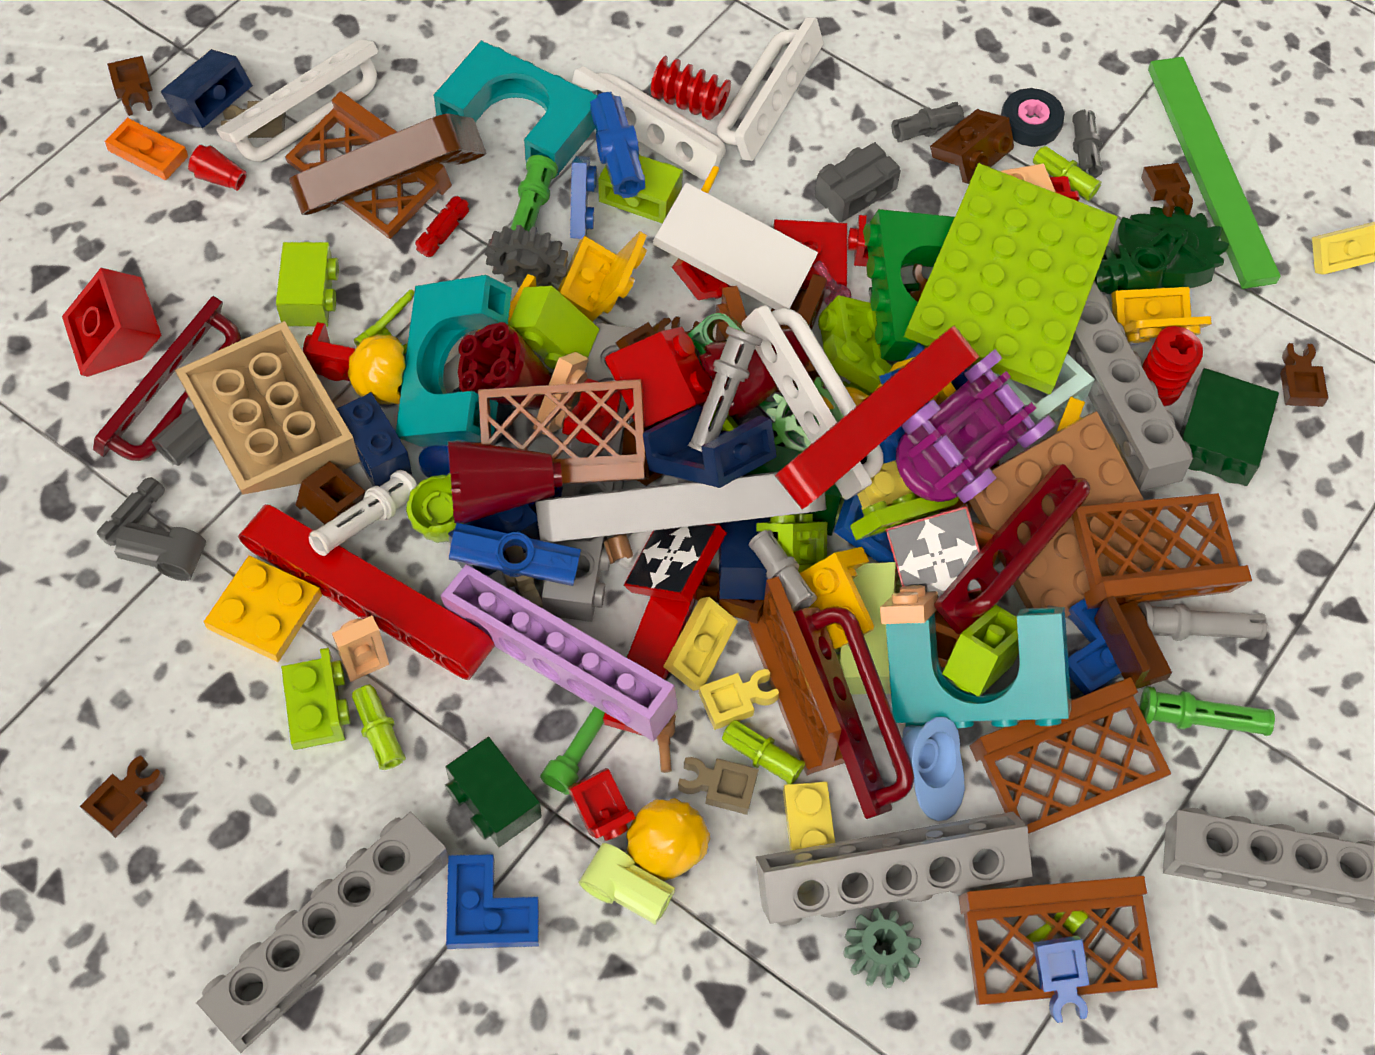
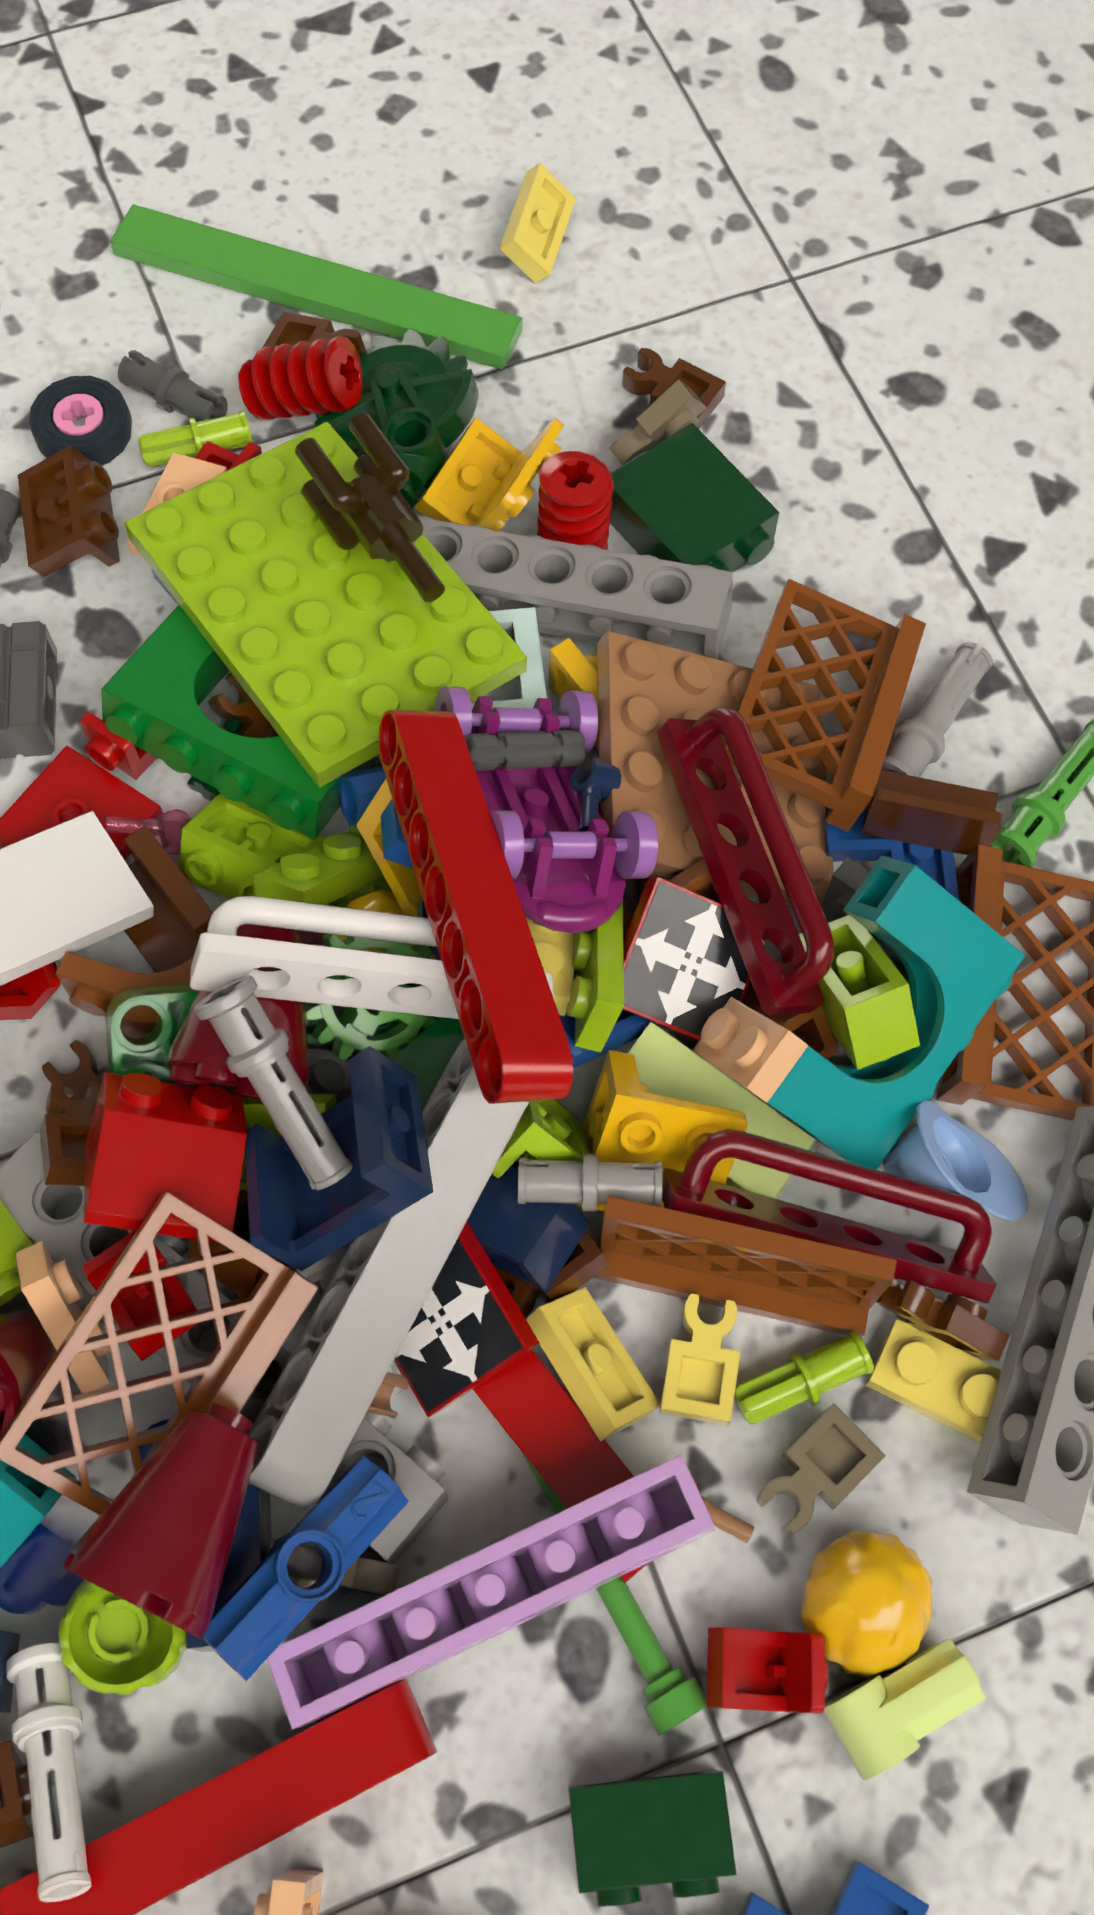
camera: 55 degrees left, 5 degrees up
(843, 806) = (952, 1321): none -> reddish brown plate
(993, 409) = (526, 749): none -> dark grey axle
(1000, 452) = (594, 788): none -> dark blue hand
(1071, 260) = (370, 505): none -> dark brown plant
(1139, 193) = (302, 379): none -> red piece
(1274, 376) = (662, 419): none -> dark tan plate

